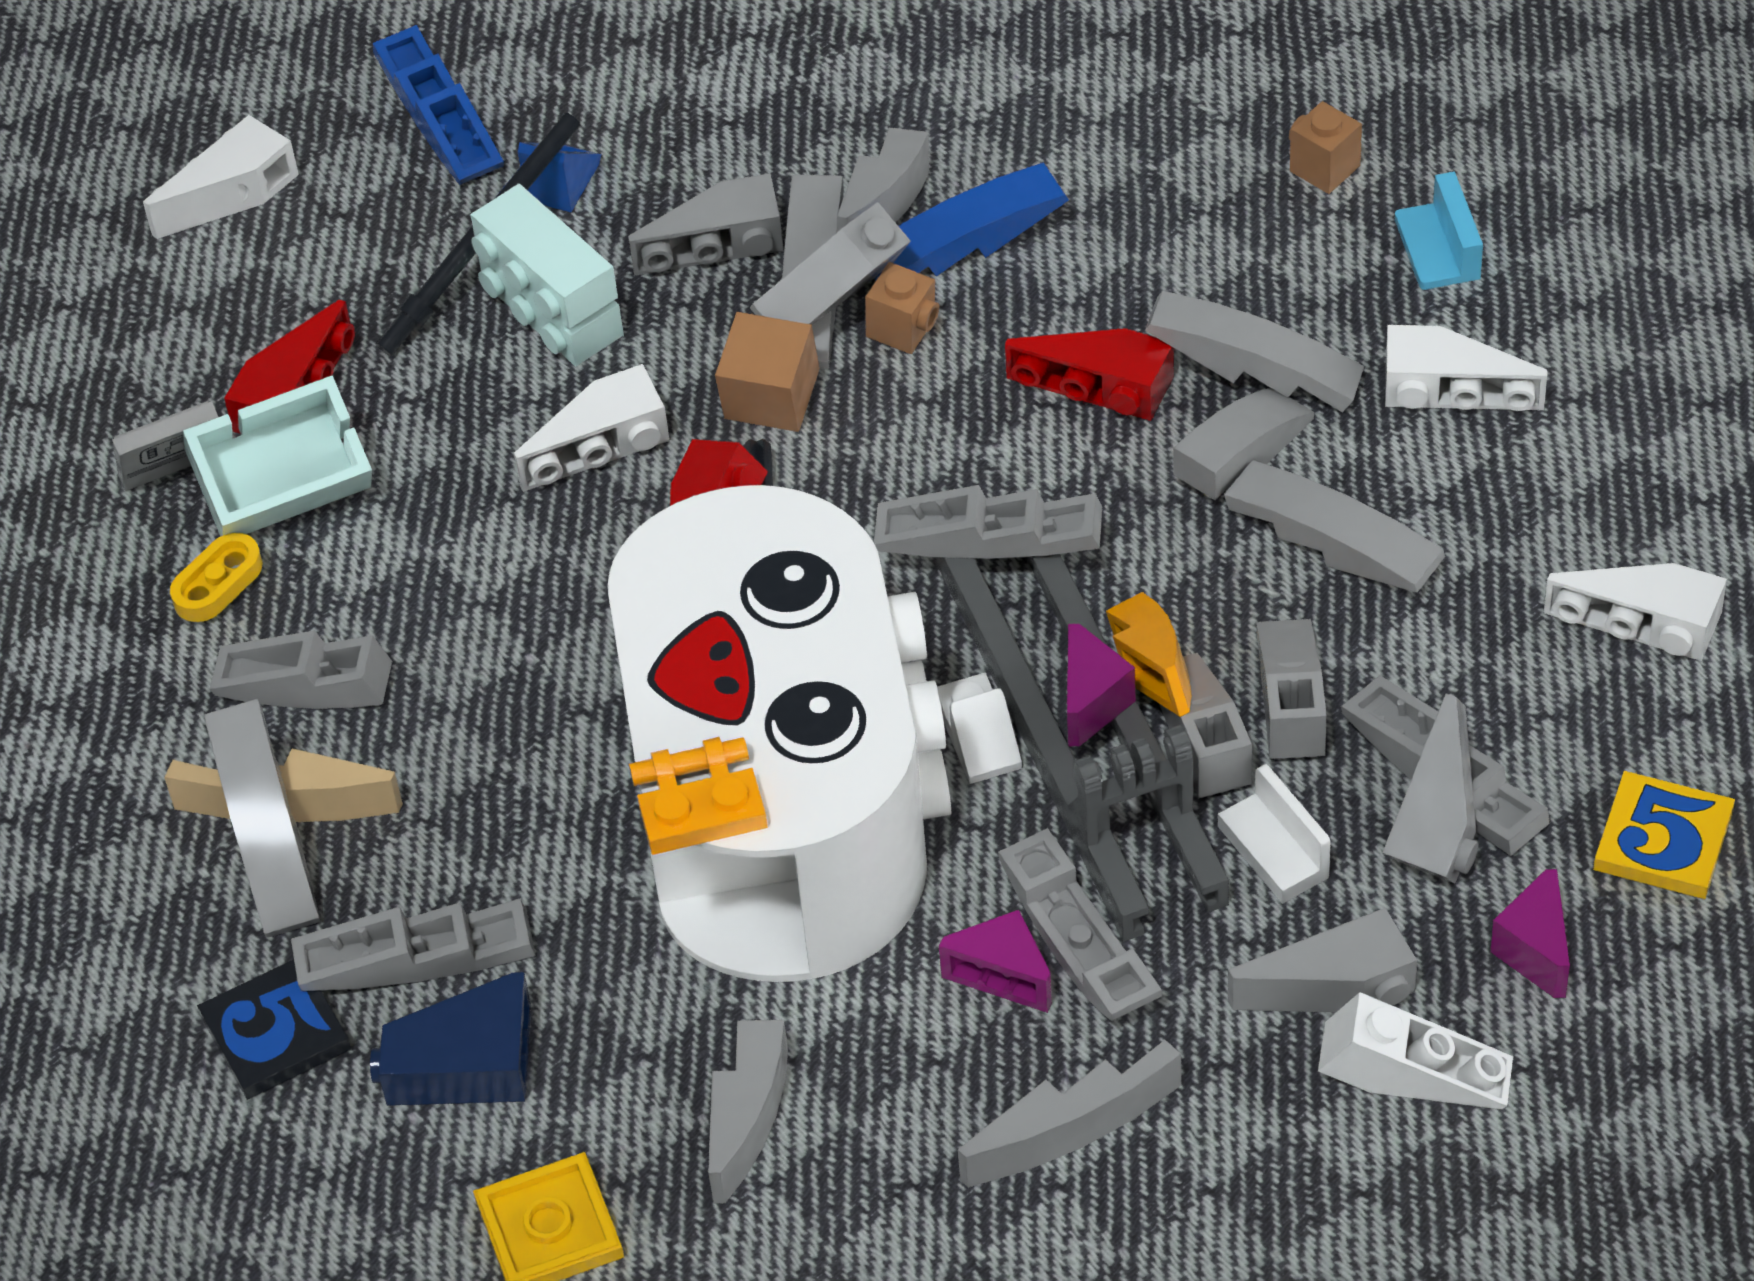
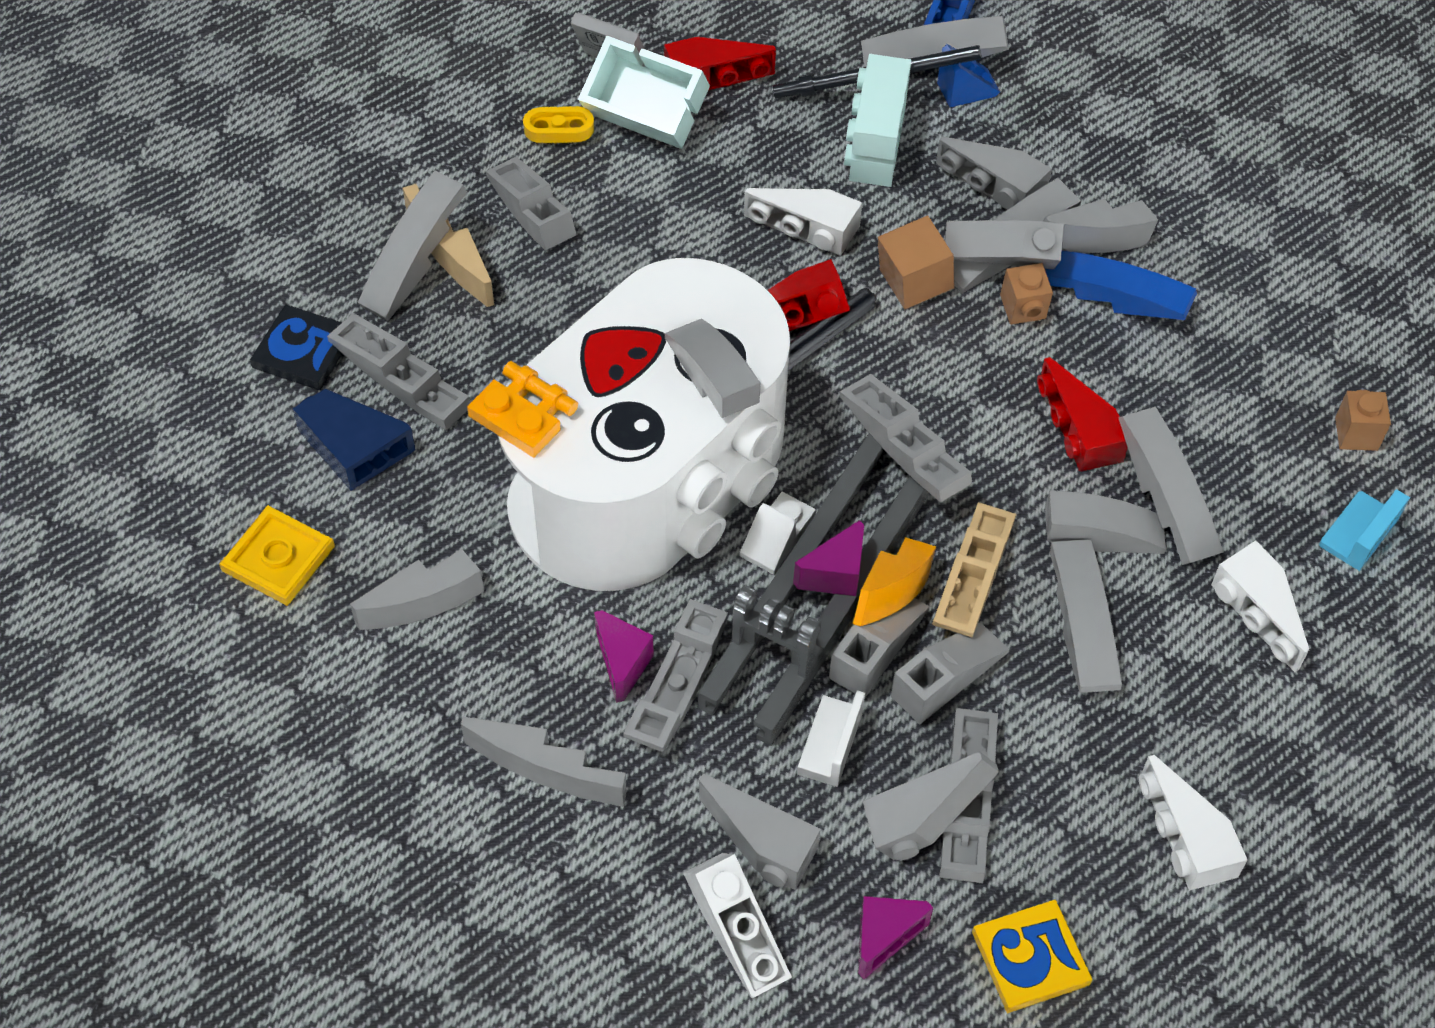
camera: 45 degrees right, 5 degrees up
(489, 160) = (931, 38): none -> light grey slope
(818, 585) = (715, 367): none -> light grey slope
(1194, 582) = (974, 570): none -> tan slope

